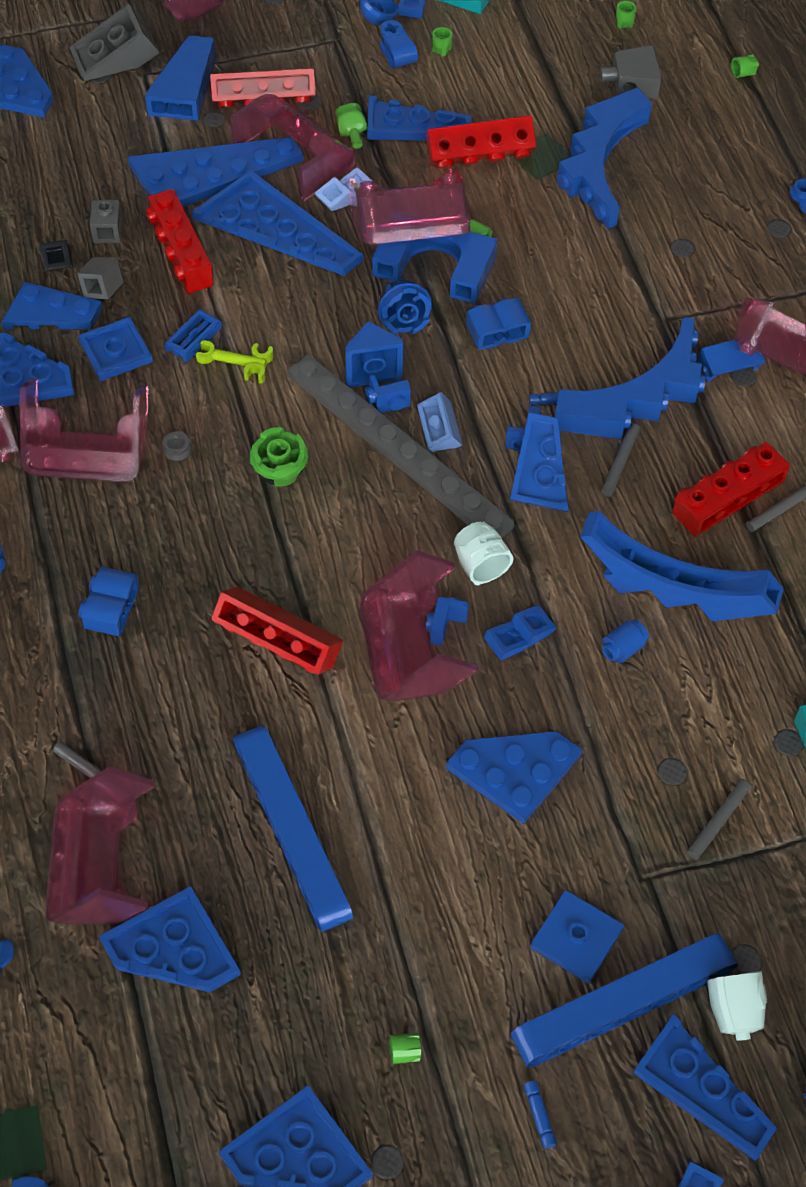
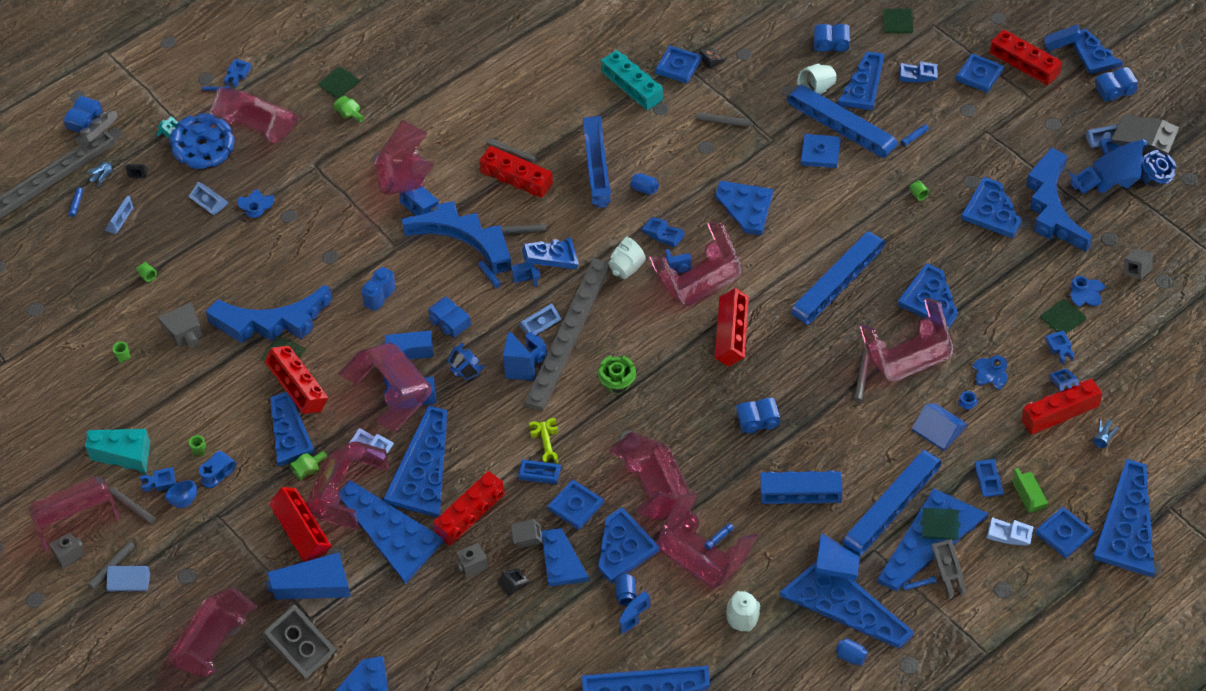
camera: 110 degrees left, 5 degrees down
(588, 265) = (378, 288): none -> blue brick

